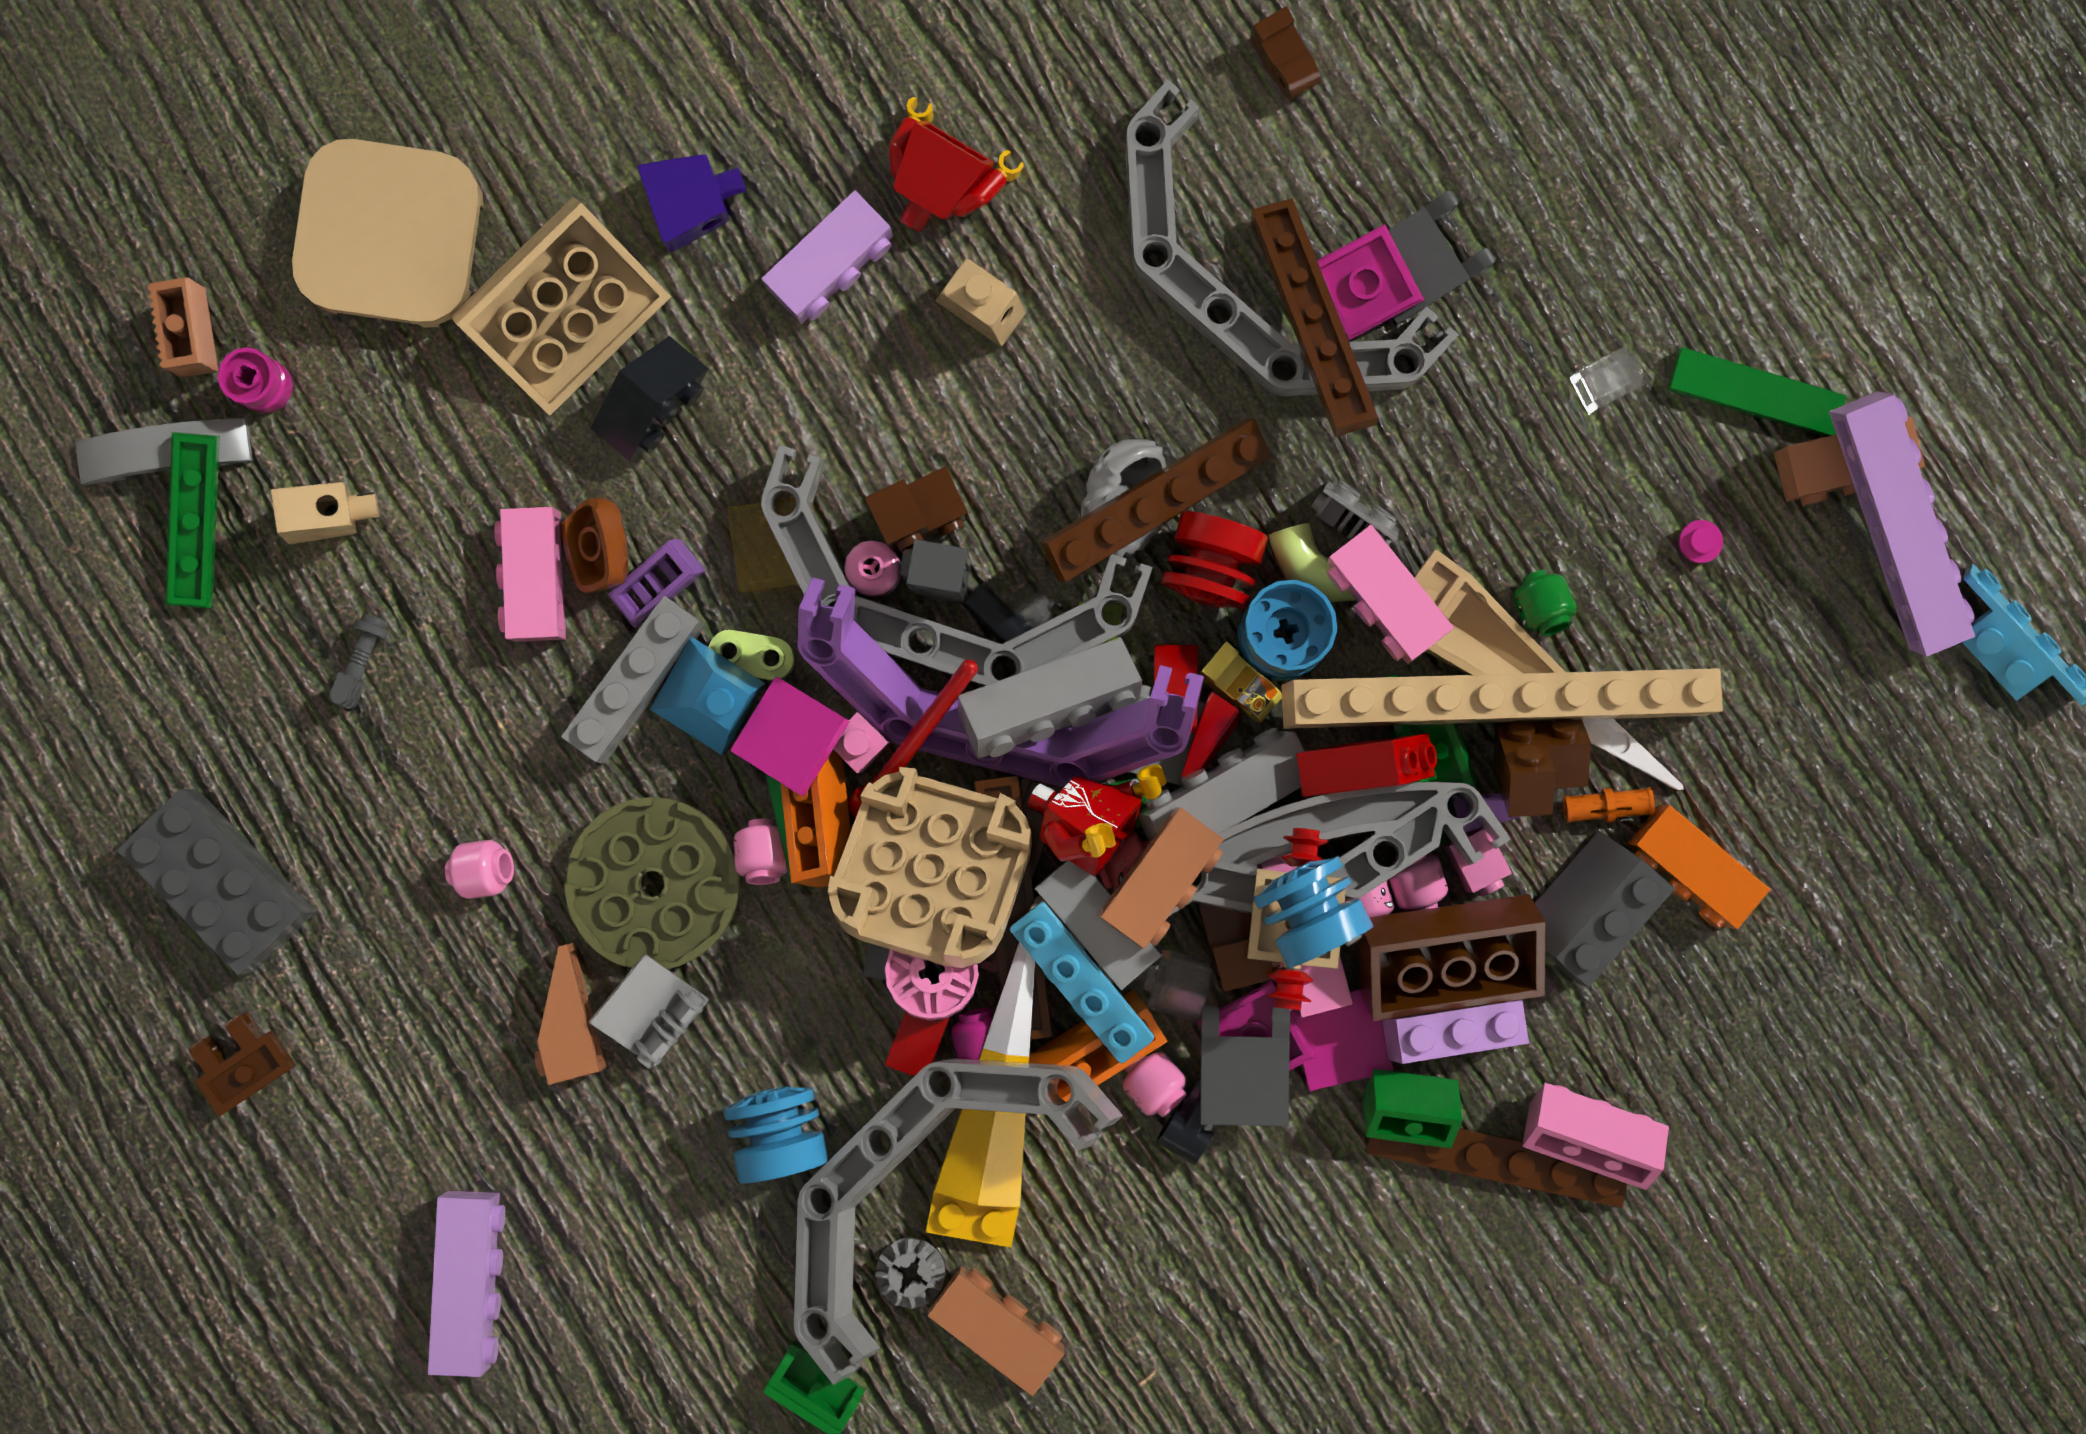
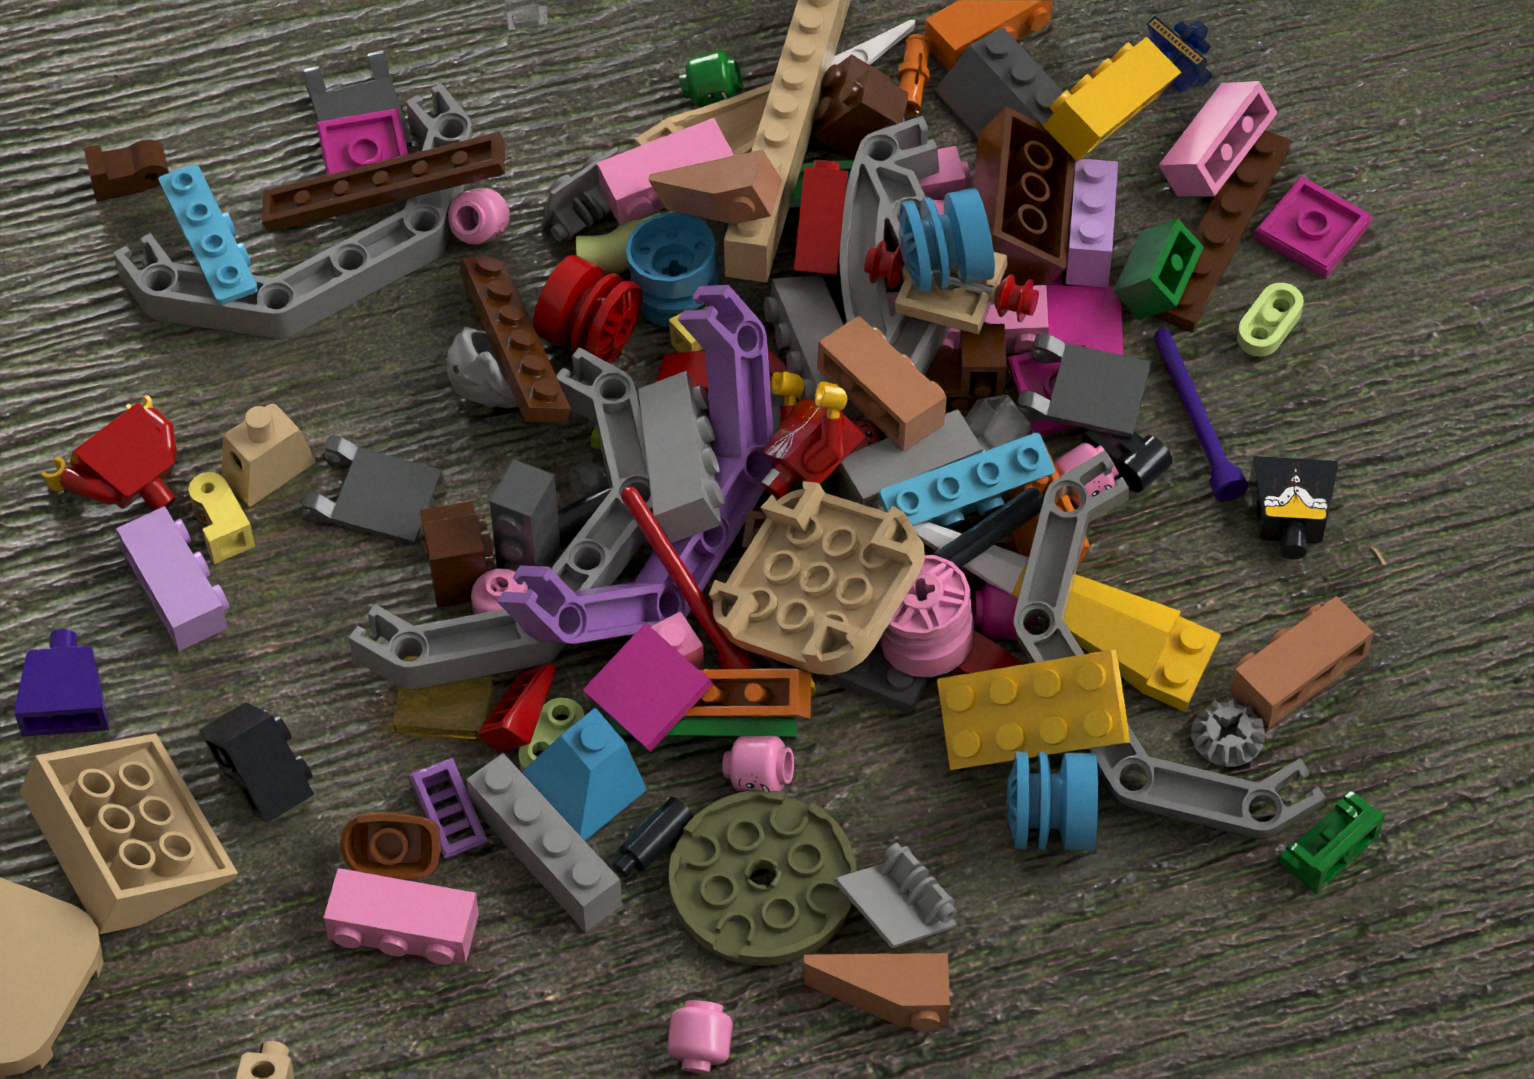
camera: 75 degrees left, 30 degrees down
(669, 775) = (653, 837): none -> black cylinder
(760, 616) = (518, 711): none -> red slope
(857, 1098) = (1033, 709): none -> yellow plate
(910, 280) = (216, 506): none -> light yellow leg
(975, 421) = (378, 495): none -> dark grey flag
(1031, 1017) = (993, 528): none -> black axle
(1174, 1290) = (1292, 500): none -> black torso
(1190, 1218) = (1226, 479): none -> dark purple piece
(1211, 166) = (209, 234): none -> medium azure bracket
(1304, 420) = (478, 216): none -> bright pink head
(1346, 676) = (721, 189): none -> nougat slope
(1388, 1228) = (1267, 322): none -> yellowish green plate
(1521, 1248) = (1313, 227): none -> dark pink tile
(1606, 1021) = (1109, 97): none -> yellow brick
(1715, 1053) = (1183, 49): none -> clear blue hips

